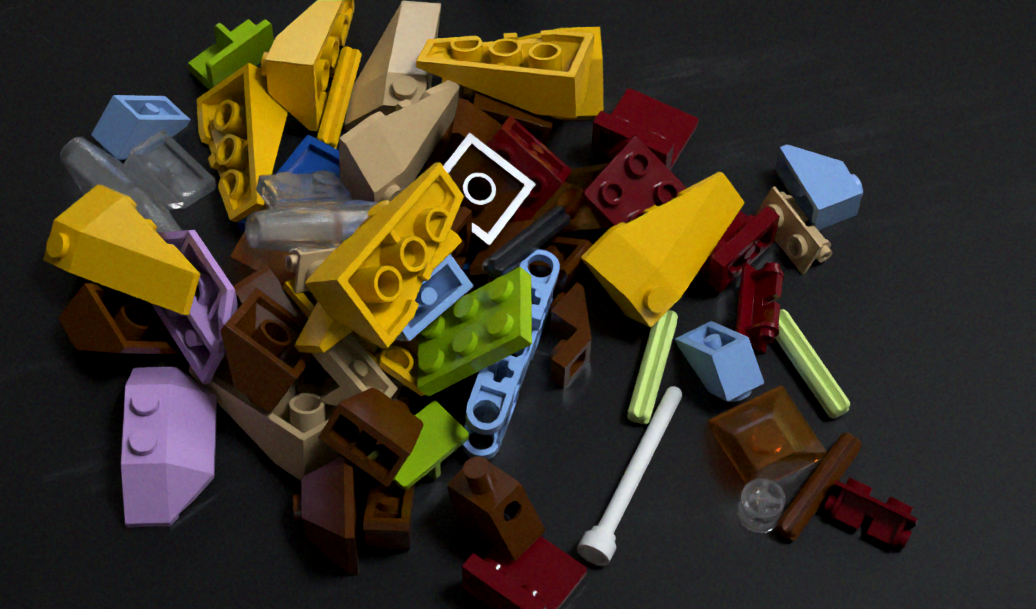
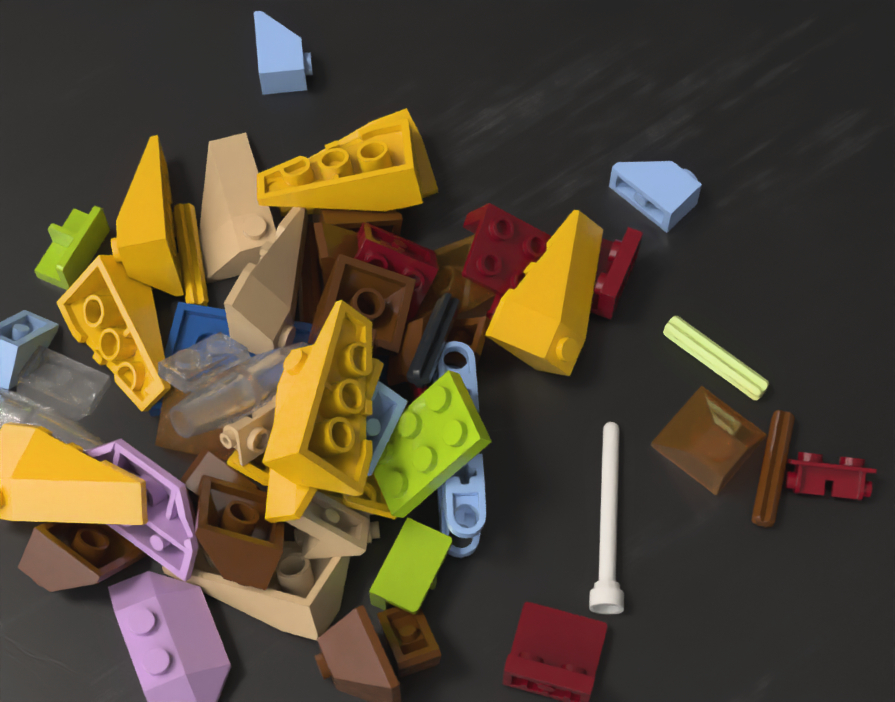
camera: 20 degrees left, 5 degrees up
(373, 433) = (377, 577): reddish brown torso -> none
(481, 498) = (497, 599): reddish brown torso -> none
(570, 324) = (499, 399): reddish brown slope -> none
(652, 121) = (478, 182): dark red bracket -> none
(652, 369) = (583, 415): yellowish green axle -> none
(722, 360) = (642, 382): light blue slope -> none
(756, 315) = (657, 334): dark red hinge -> none
(764, 495) = (733, 495): clear wheel -> none
(797, 240) = (657, 245): tan hinge -> none

